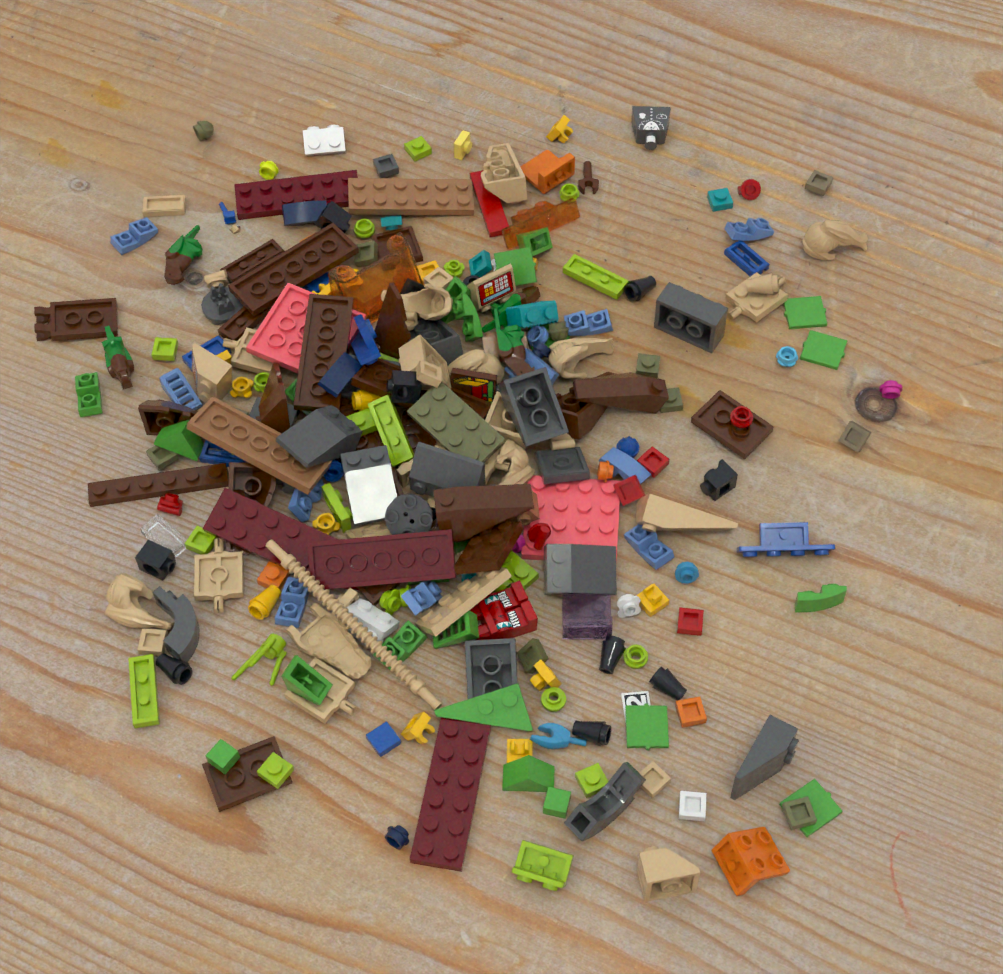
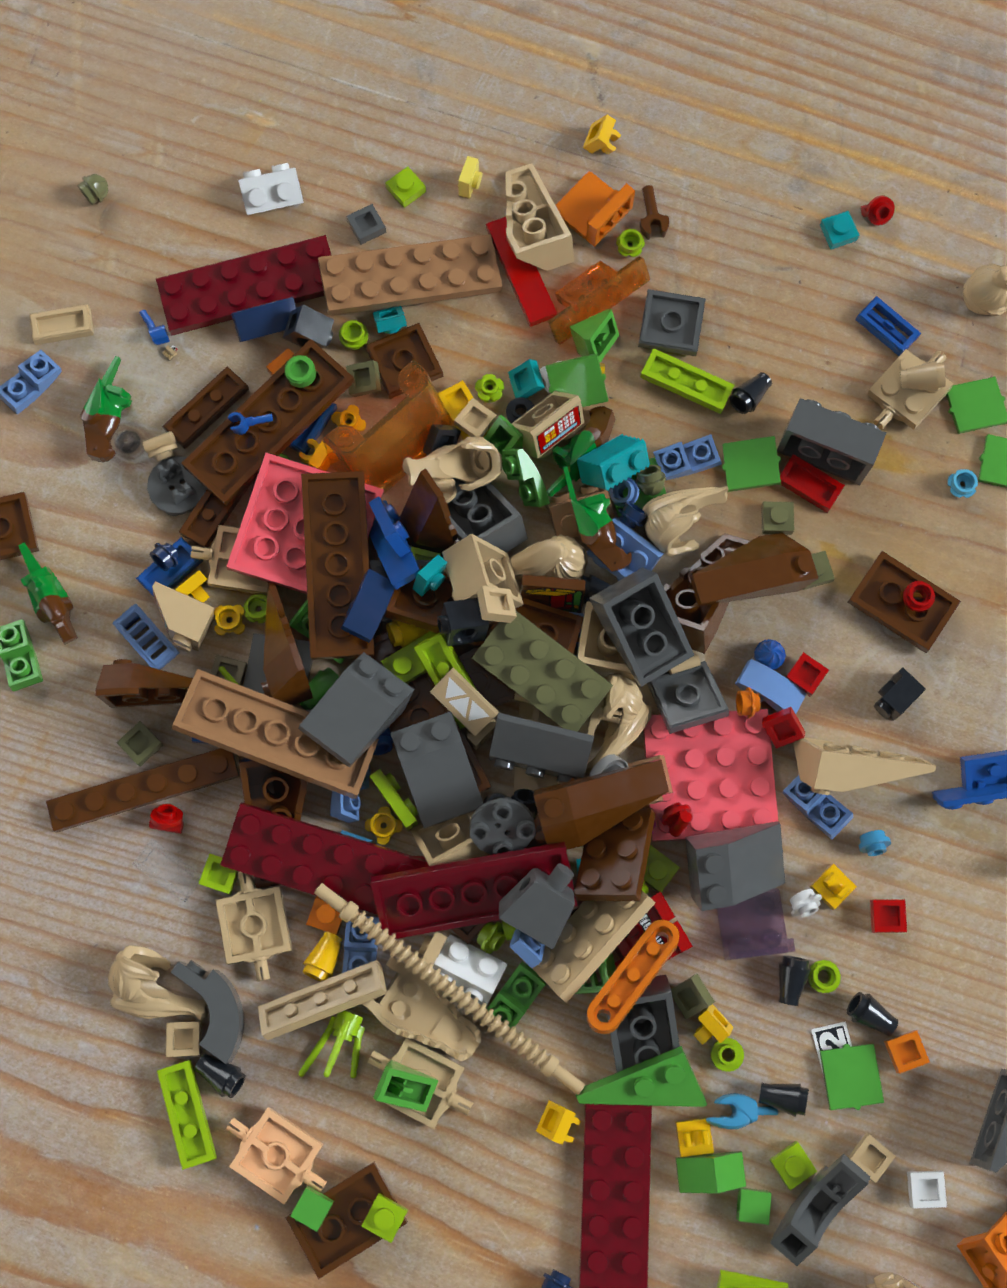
camera: 10 degrees left, 20 degrees up
(156, 560) = (164, 913): black brick -> none
(164, 349) = (110, 569): lime plate -> none
(180, 440) = (154, 721): bright green slope -> none
(202, 723) = (276, 1155): none -> light nougat plate
(205, 340) = (164, 556): none -> dark blue plate
(257, 624) = (322, 1000): none -> tan plate
(268, 170) = (200, 248): neon yellow plate -> none
(274, 265) = (246, 422): none -> blue hand
(321, 239) = (300, 371): none -> bright green tile
(383, 739) = (515, 1141): blue tile -> none
(387, 360) = (430, 576): none -> teal plate
(397, 442) = (464, 701): none -> tan tile
(428, 566) = (540, 904): none -> dark grey torso
(487, 623) = (632, 976): none -> orange plate
(590, 241) = (671, 322): none -> dark grey plate
(633, 330) = (751, 463): none -> bright green piece
(650, 125) = (728, 115): dark grey torso -> none
(675, 347) = (810, 483): none -> red tile
(752, 230) = (891, 279): medium blue slope -> none
(818, 182) = (972, 189): dark tan plate -> none

